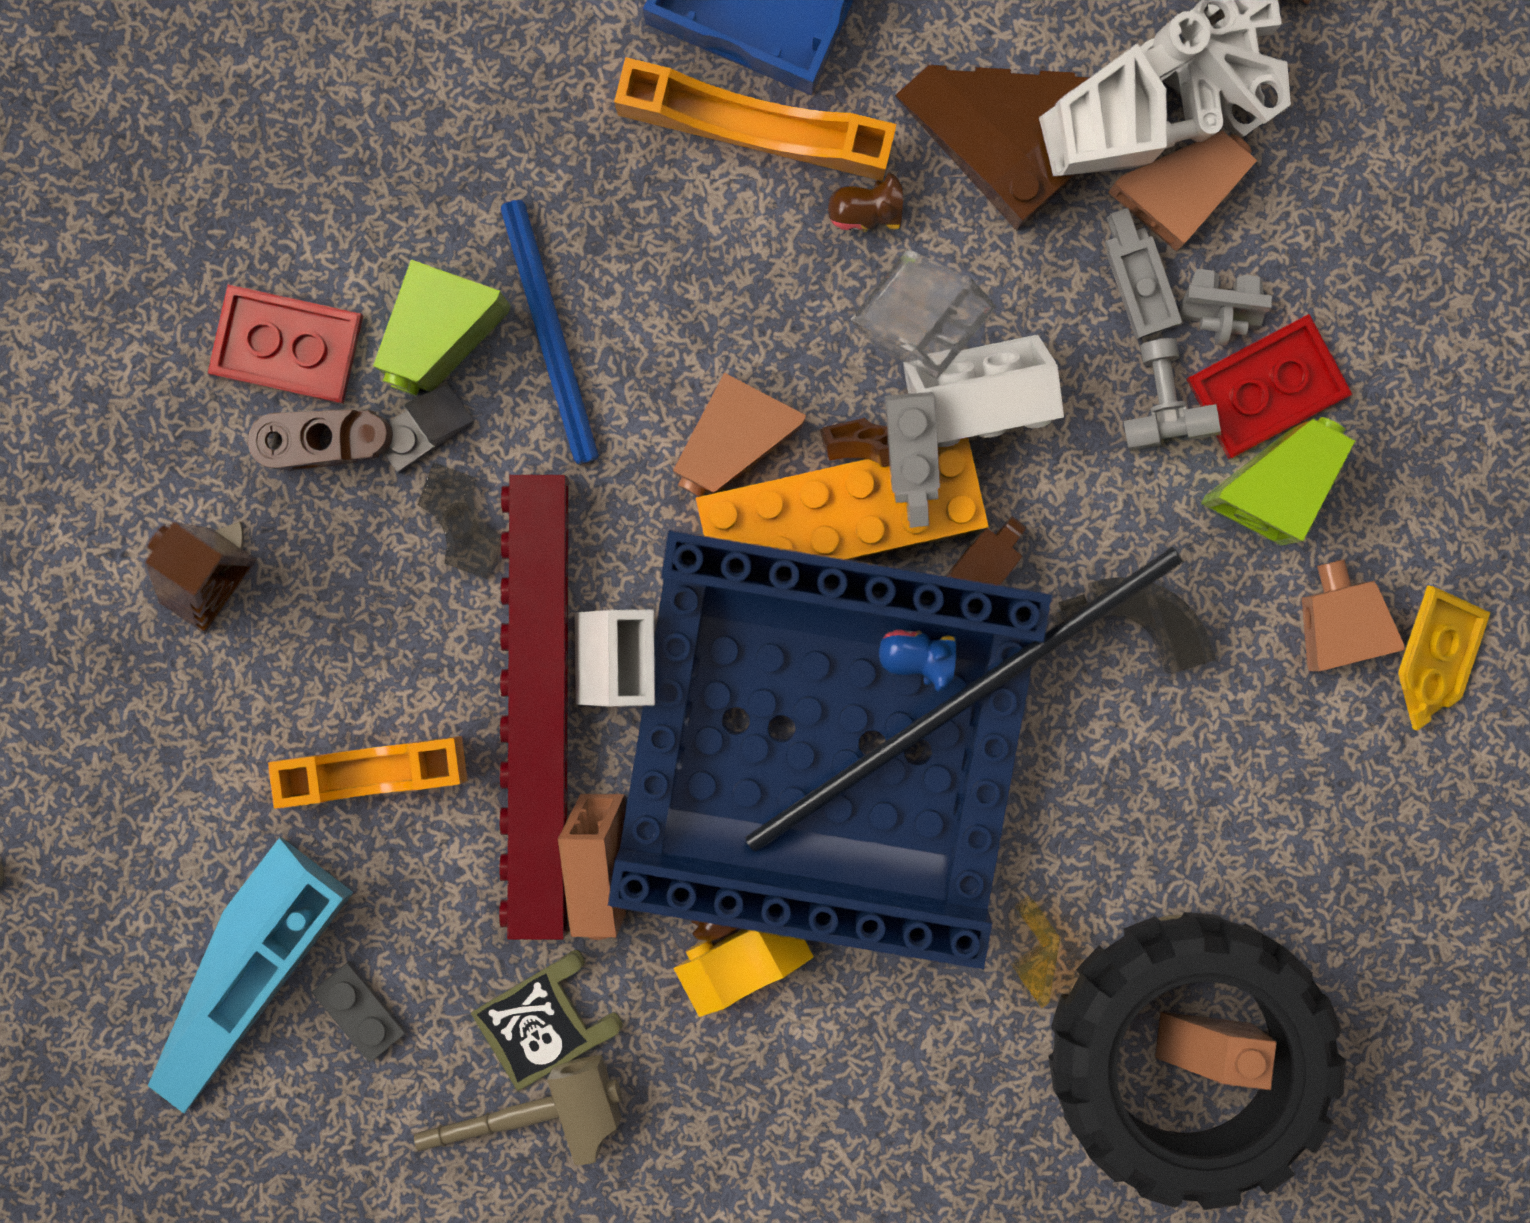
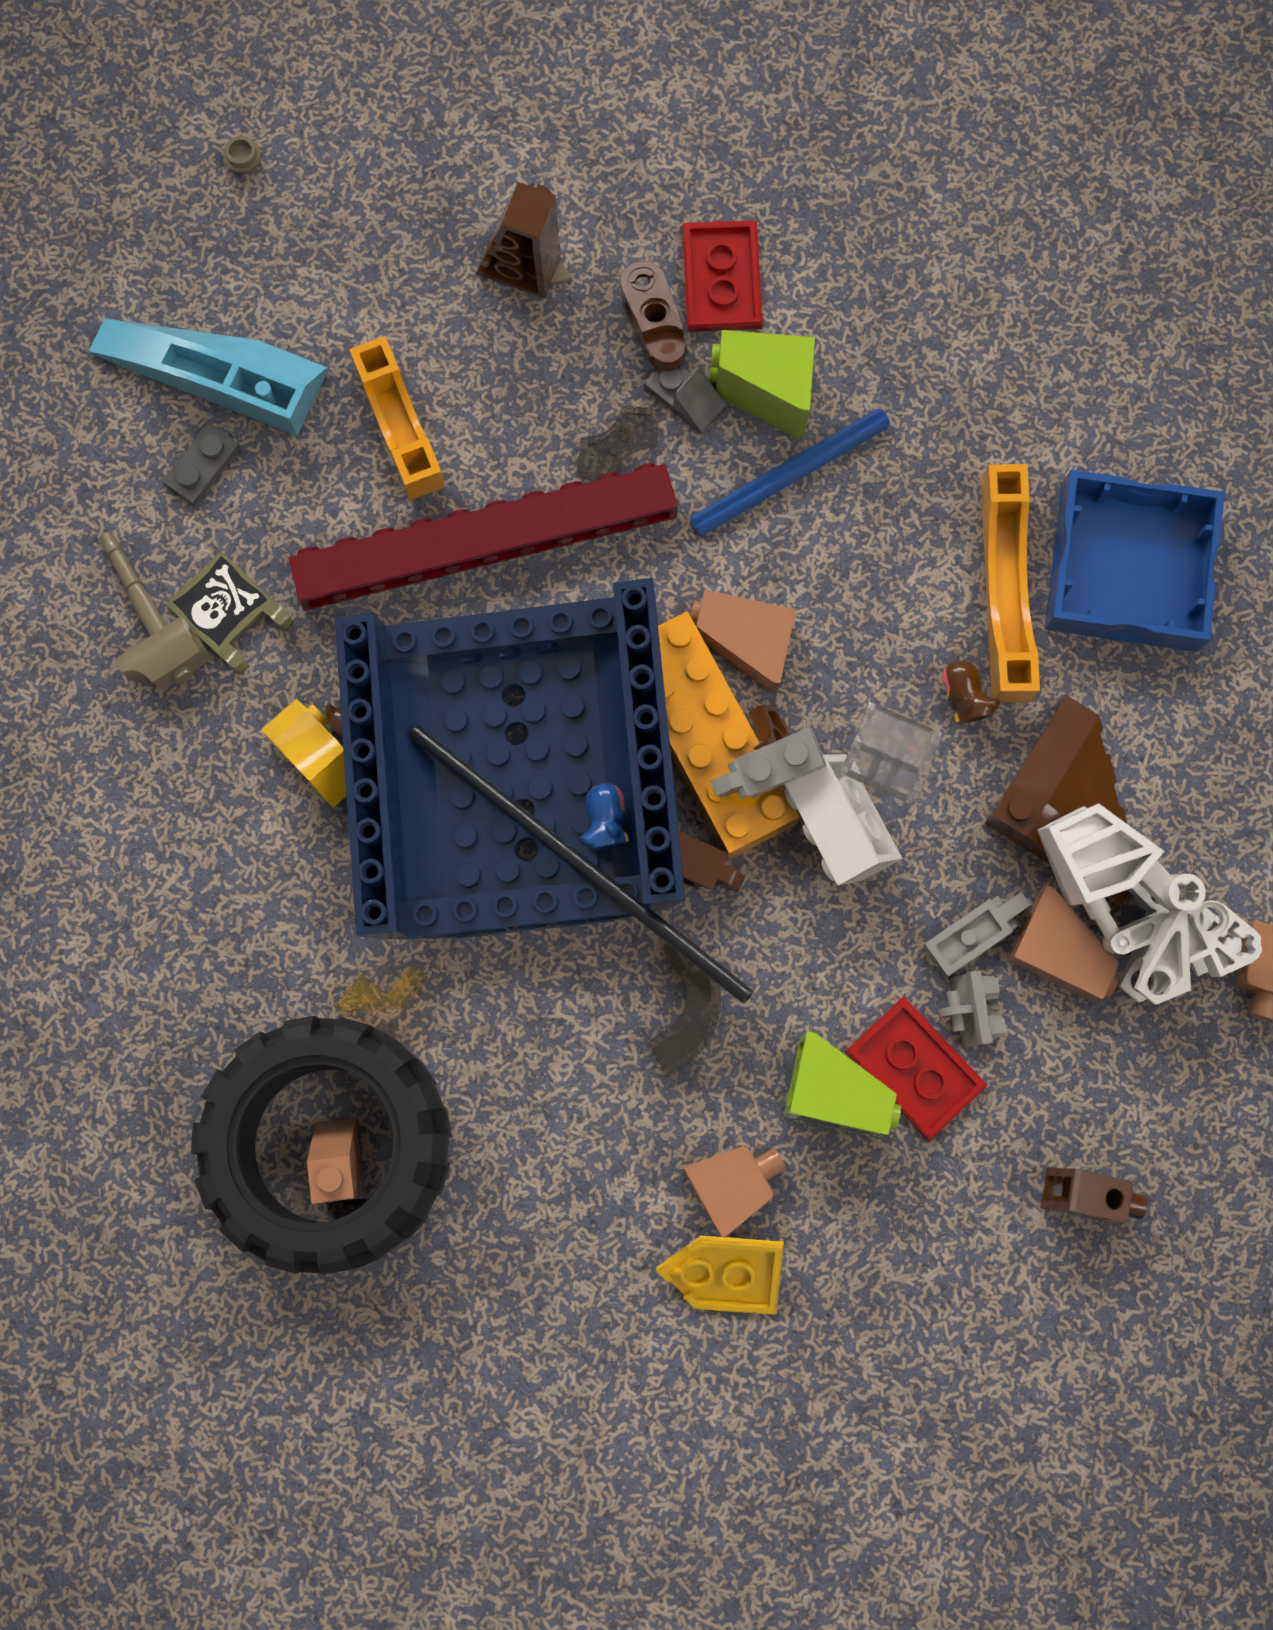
camera: 70 degrees right, 10 degrees down
(587, 862) = (373, 593): nougat slope -> none
(614, 658) = (539, 579): white brick -> none
(1171, 416) = (866, 987): light grey bar -> none
(1462, 239) = (1091, 1195): none -> reddish brown torso

